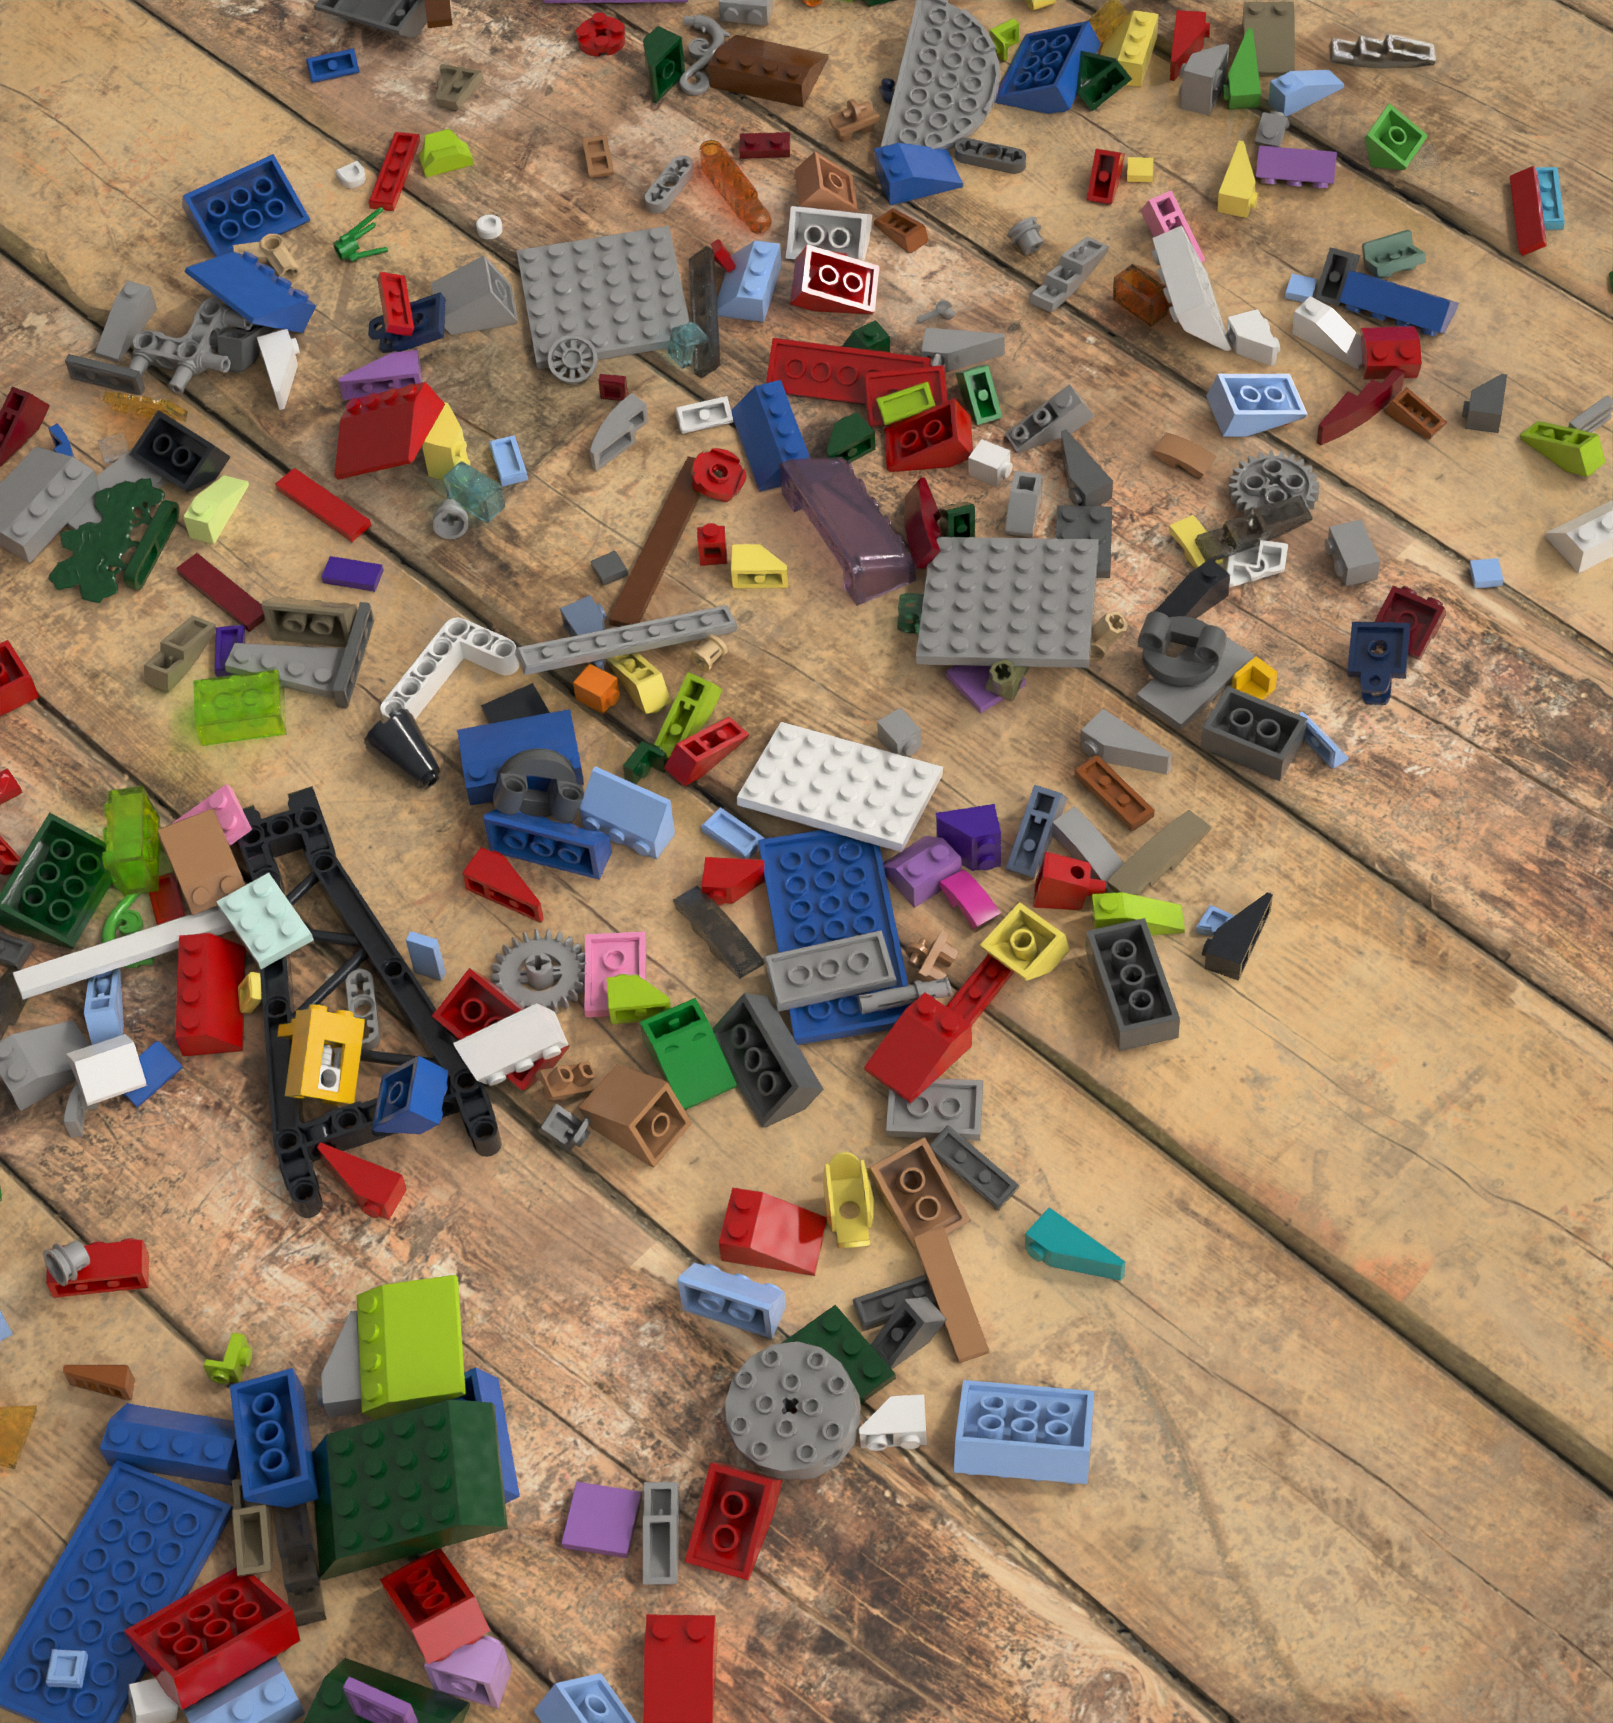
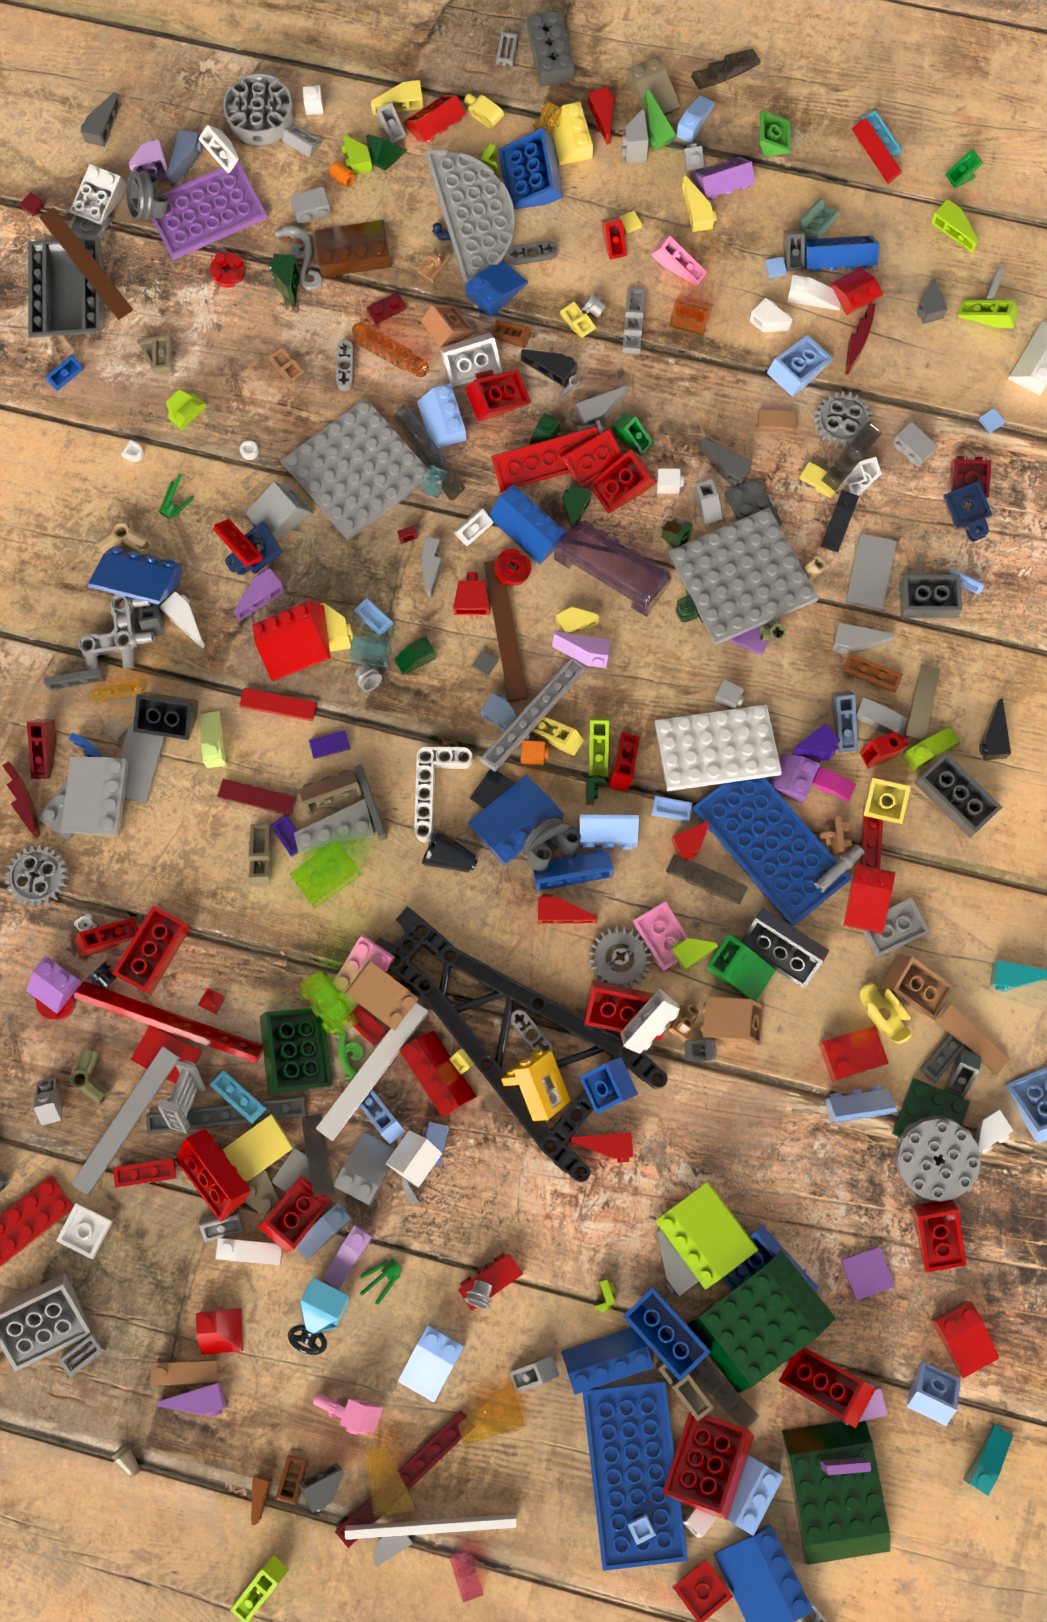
camera: 30 degrees left, 20 degrees up
(72, 1406) = (534, 1374): none -> light grey slope
(102, 543) = (160, 801): dark green plant -> none
(104, 1379) = (543, 1346): dark orange slope -> none
(127, 317) = (60, 633): light grey slope -> none
(244, 207) = (83, 512): blue slope -> none
(265, 920) = (443, 1013): light aqua plate -> none
(394, 171) = (159, 435): red tile -> none
(425, 955) = (552, 985): light blue tile -> none
(528, 520) = (415, 655): none -> dark green slope
(572, 359) = (369, 526): light grey wheel -> none
(643, 486) = (471, 597): none -> red torso
(661, 1532) = (905, 1264): light grey slope -> none
(709, 653) = (583, 694): tan bush -> none
(711, 537) = (539, 619): red brick -> none
(722, 256) = (417, 407): red tile -> none
(744, 599) = (585, 649): none -> lavender slope
(830, 970) = (787, 873): light grey tile -> none
(905, 403) = (597, 464): lime tile -> none
(921, 523) = (655, 543): dark red slope -> none
(926, 278) = (552, 365): none -> black slope
(973, 1168) = (938, 954): dark grey tile -> none
(996, 246) = (578, 322): none -> light yellow slope
(1061, 412) = (686, 434): light grey slope -> none
(1099, 78) = (570, 166): dark green slope -> none
(1161, 630) = (876, 553): dark grey piece -> none
(1188, 288) = (721, 302): white slope -> none
(1212, 920) = (973, 728): light blue tile -> none
(1255, 679) = (907, 559): yellow panel -> none
(1413, 403) = (884, 331): dark orange slope -> none
(1579, 324) = (953, 222): none -> lime slope

